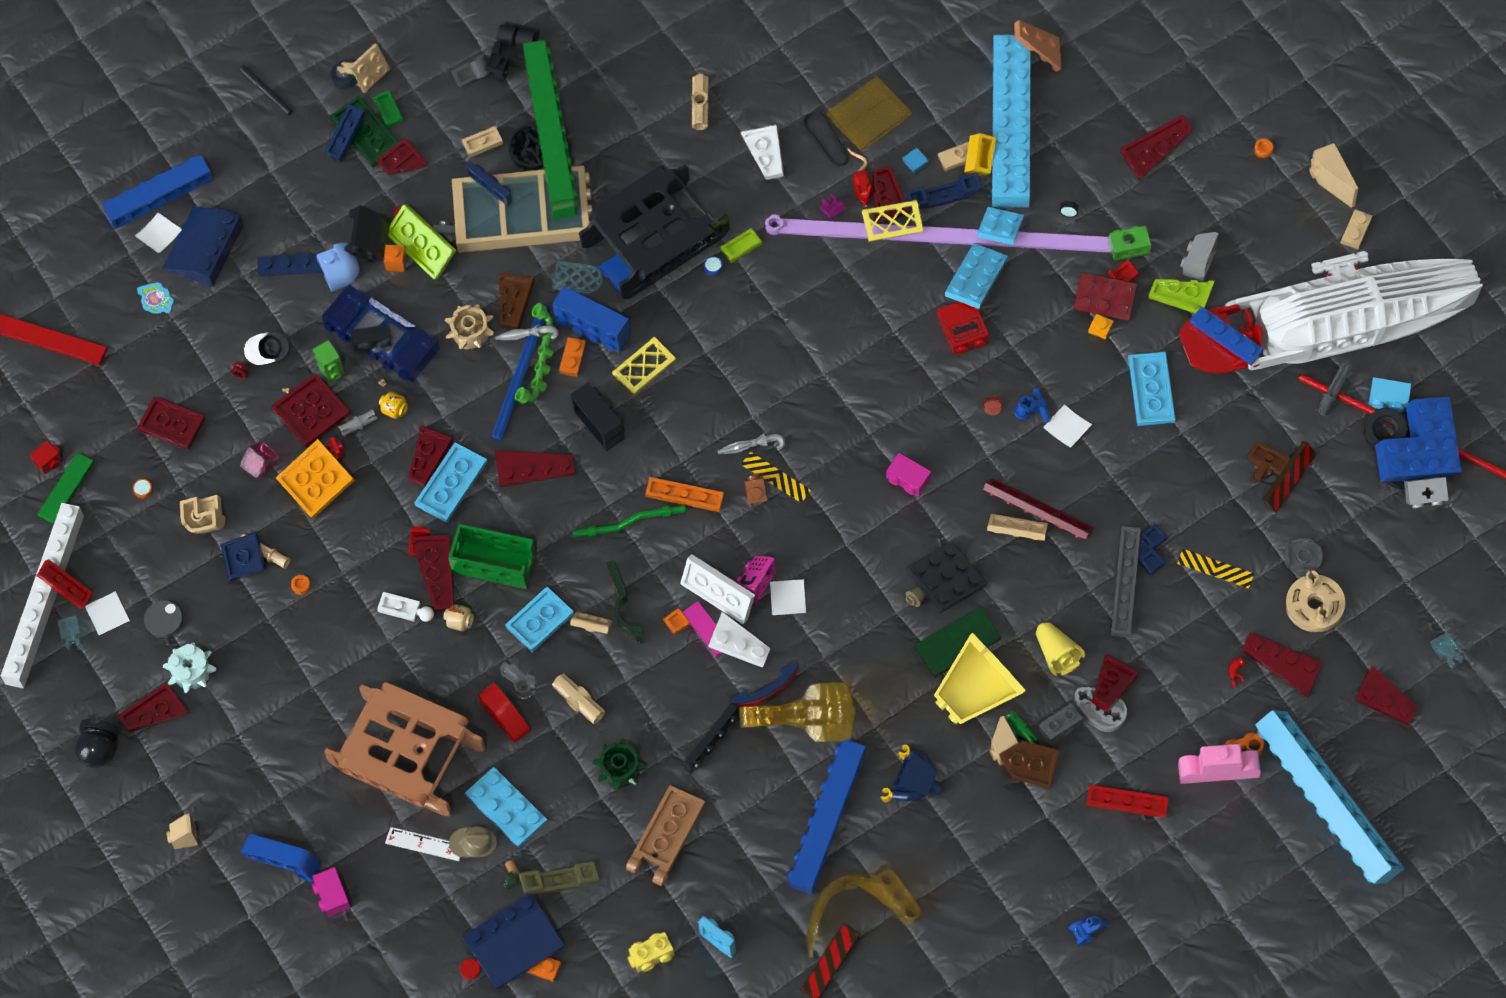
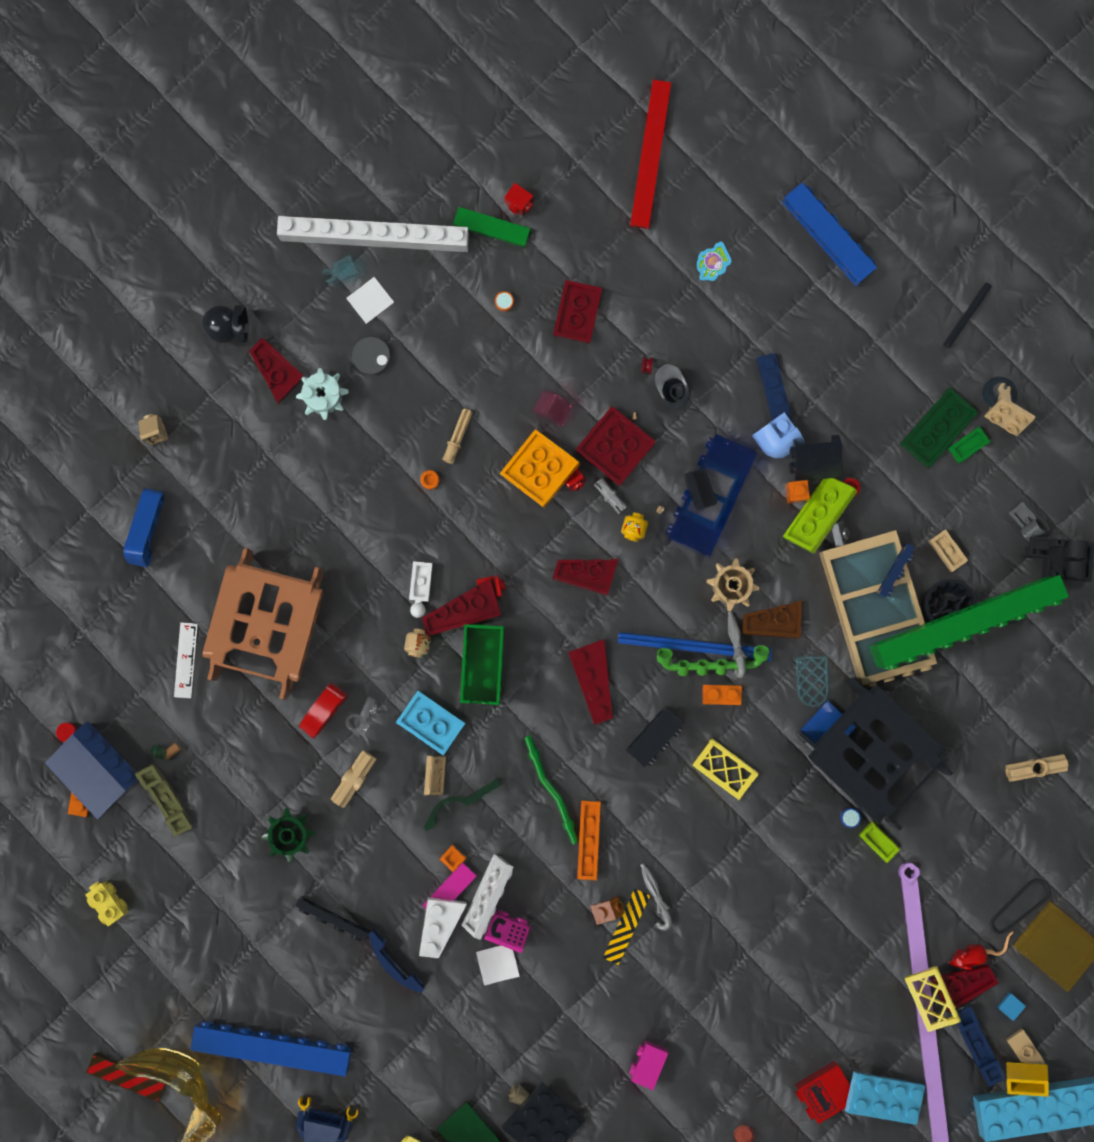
camera: 75 degrees right, 20 degrees up
(64, 584) = (382, 252): red plate -> none
(158, 233) = (785, 247): white sticker -> none
(202, 514) = (481, 367): tan brick -> none
(204, 244) = (779, 295): dark blue slope -> none
(243, 556) = (446, 417): dark blue tile -> none
(328, 361) = (667, 452): bright green brick -> none
(331, 892) = (118, 583): dark pink brick -> none
(345, 132) = (930, 408): dark blue plate -> none
(401, 159) = (912, 472): dark red wing -> none
(451, 482) = (561, 603): medium azure plate -> none
(472, 842) = (193, 706): dark tan piece -> none
(506, 807) = (233, 731): medium azure plate -> none
(591, 319) = (761, 707): blue brick -> none
(667, 832) = (230, 894): medium nougat hinge -> none
(722, 940) = (124, 971): medium azure plate -> none
(766, 150) = (994, 846): white wing -> none
(823, 712) = (376, 1023): clear yellow piece -> none
(832, 207) = (939, 930): magenta tile -> none
(1000, 226) = (949, 1112): medium azure plate -> none

